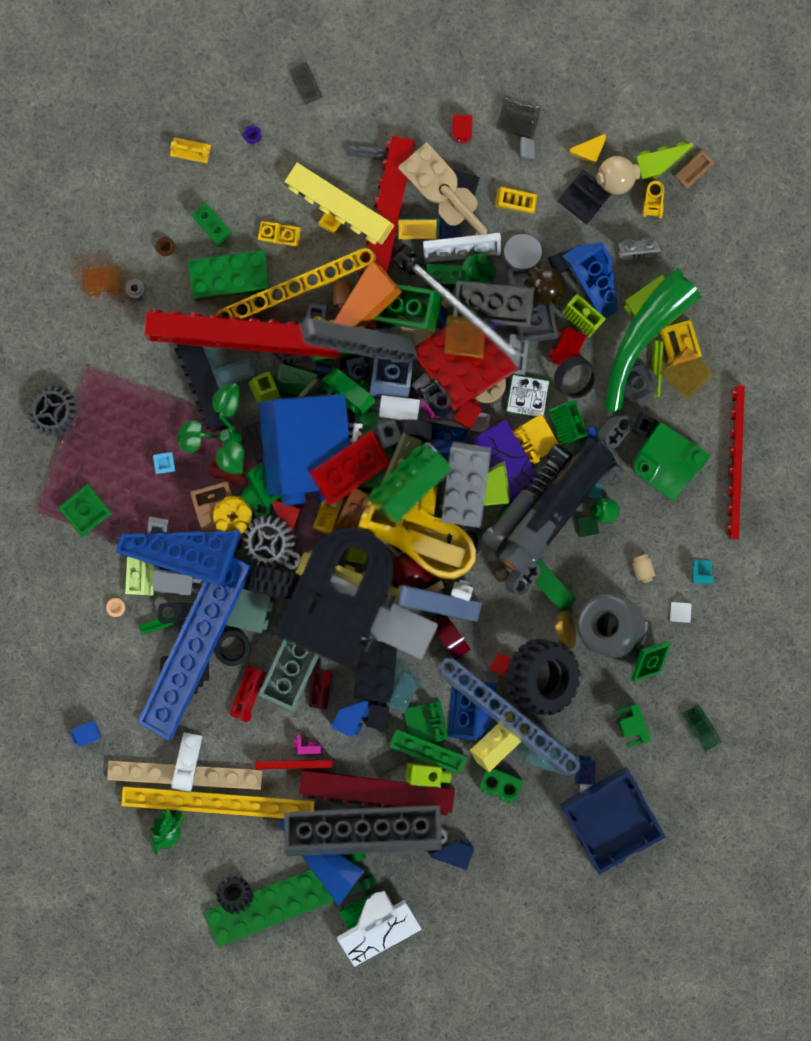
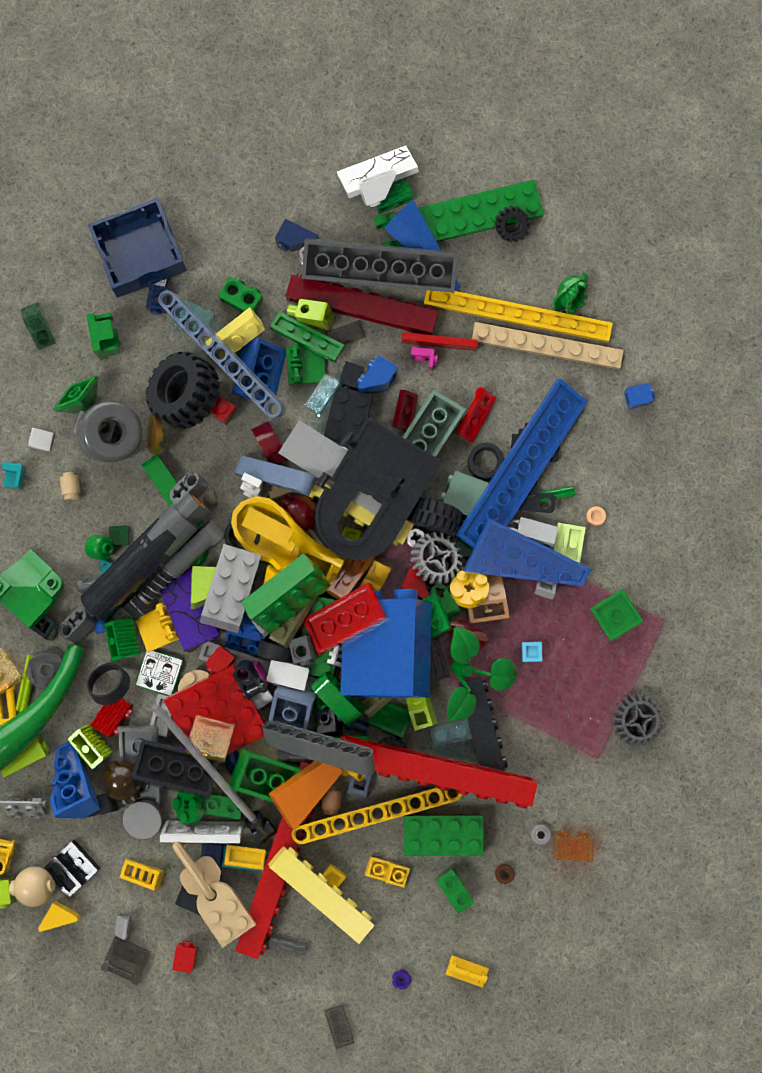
camera: 170 degrees left, 5 degrees down
(187, 762) = (543, 356): white plate -> none

